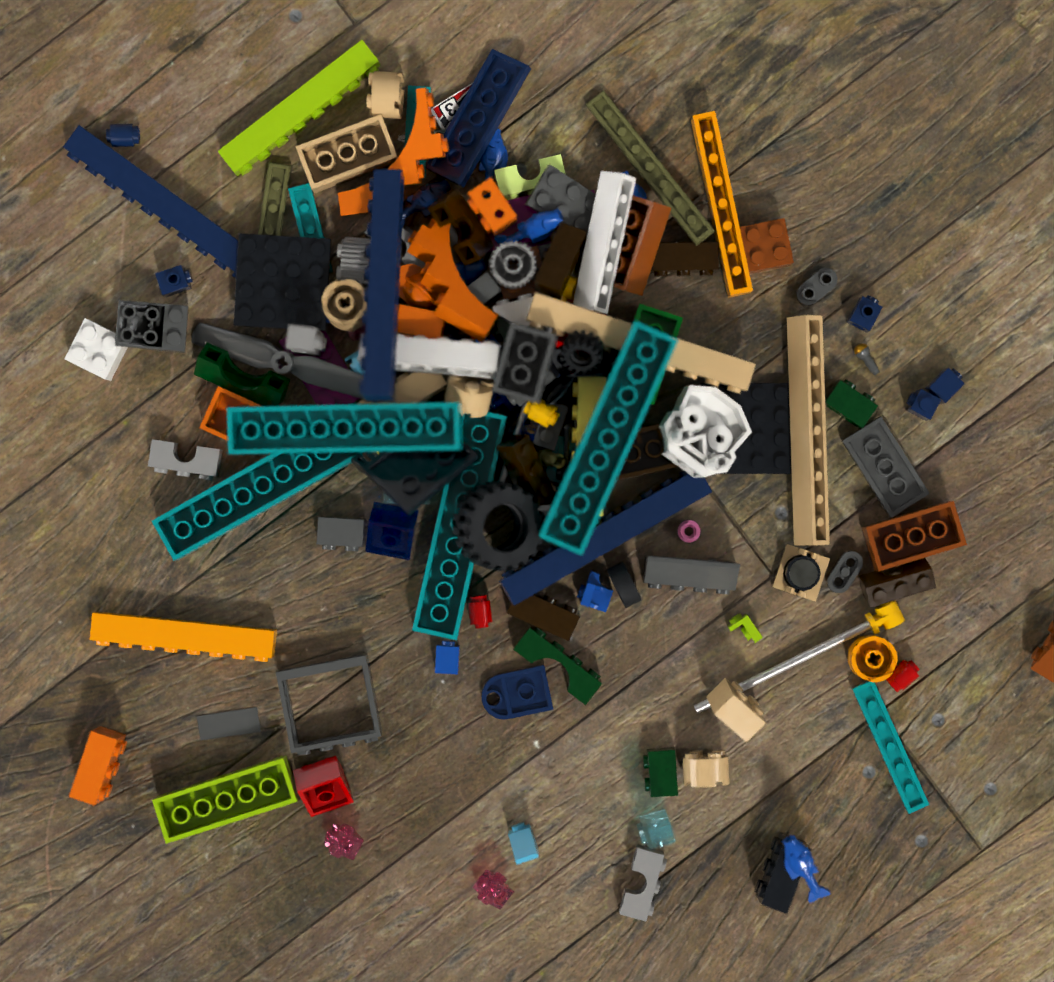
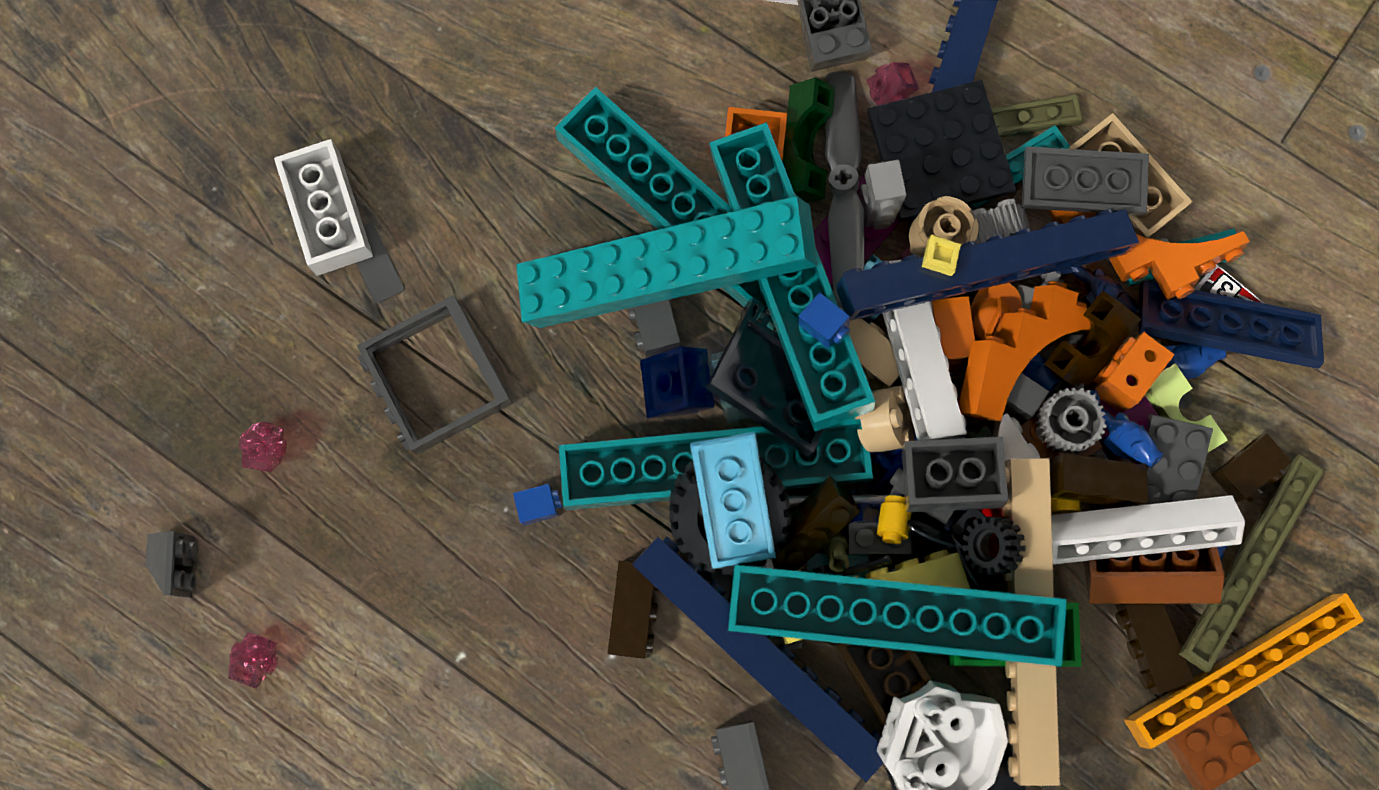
camera: 75 degrees right, 10 degrees down
(98, 765) = (273, 118): orange brick -> none
(174, 280) = (894, 29): dark blue brick -> none
(177, 748) = (323, 207): none -> white brick
(184, 635) = (467, 174): light orange brick -> none
(205, 463) = (687, 132): light grey arch -> none
(218, 298) = (892, 83): none -> clear pink brick
(226, 799) = (276, 286): lime brick -> none
(299, 108) = (1157, 109): lime brick -> none
(308, 514) = (668, 263): none -> teal brick
(322, 786) = (327, 399): red slope -> none
(341, 187) = (1085, 180): none -> dark grey plate
(369, 319) = (941, 255): none -> light yellow tile
(386, 94) = (1217, 202): tan brick -> none
(391, 418) = (825, 321): none -> blue brick
(405, 928) = (171, 562): none -> dark grey slope
(479, 611) = (610, 526): red brick -> none
(494, 522) = (733, 500): none -> medium azure tile
(520, 693) = (520, 613): dark blue tile -> none
(523, 843) = (323, 680): medium azure slope -> none
(535, 646) = (558, 690): dark green arch -> none
(585, 142) = (1252, 468): none -> dark brown brick
(594, 594) = (679, 668): blue brick -> none
(624, 584) = (704, 704): black tyre -> none
(681, 531) = (811, 772): bright pink plate -> none

